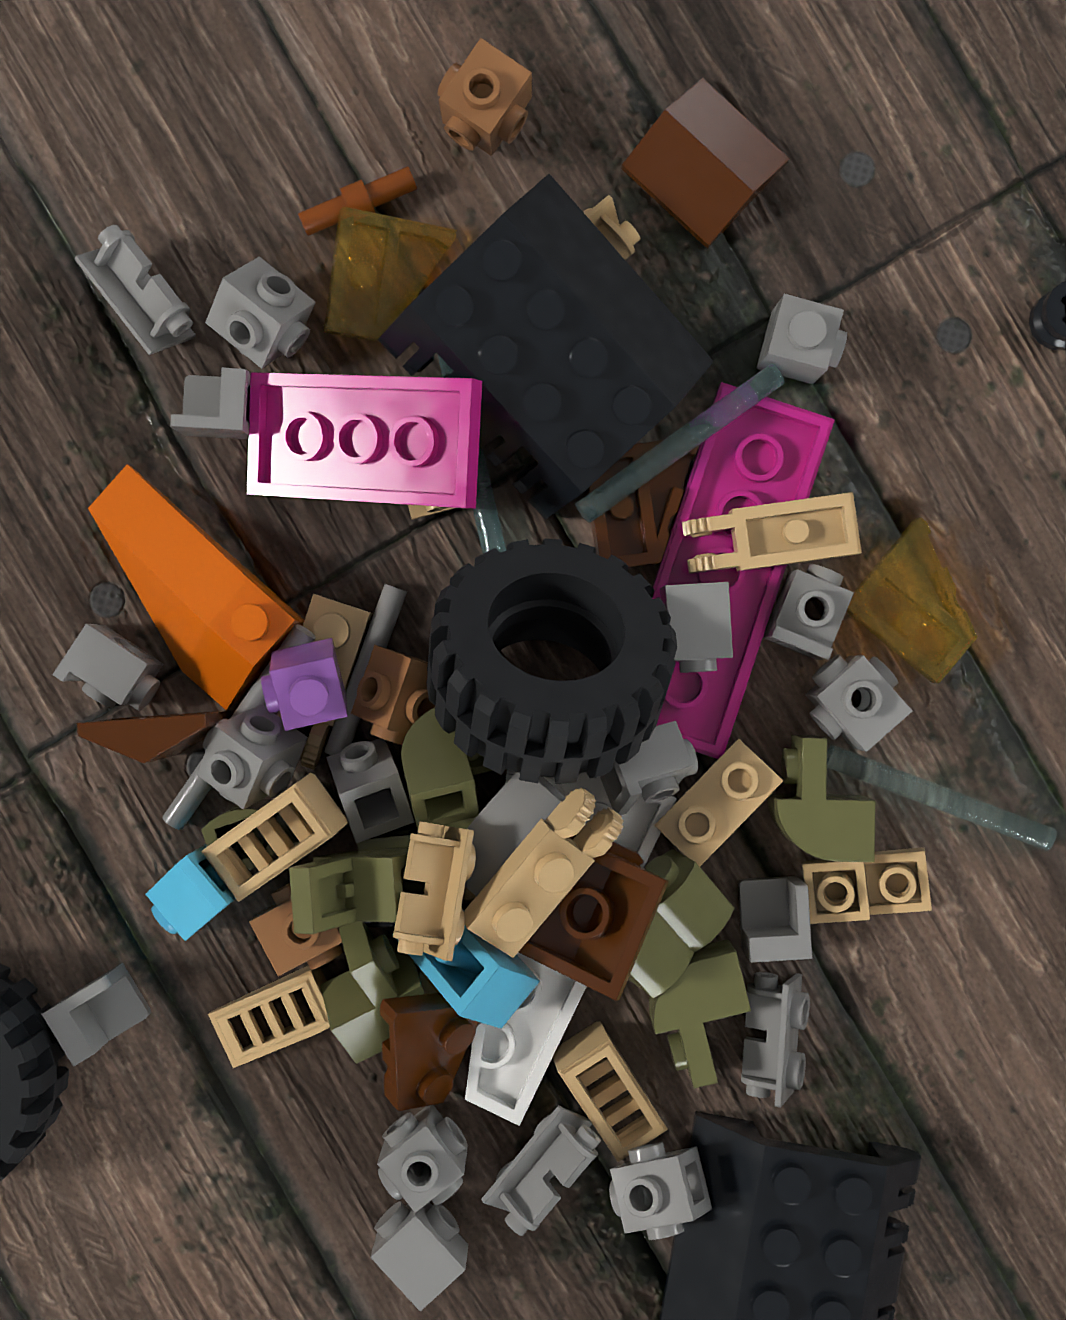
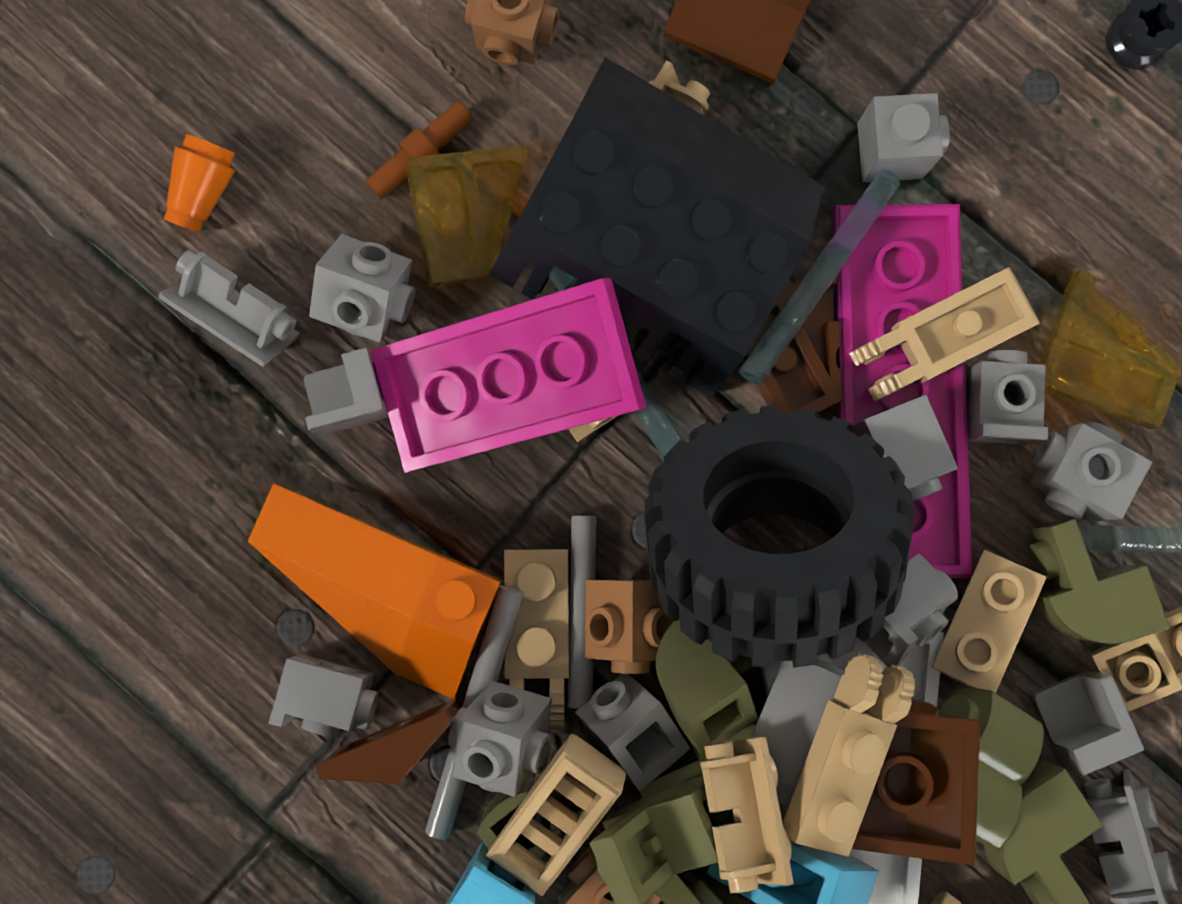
camera: 20 degrees left, 5 degrees down
(144, 162) = (197, 181): none -> orange cone
(305, 685) = (535, 644): medium lavender brick -> none

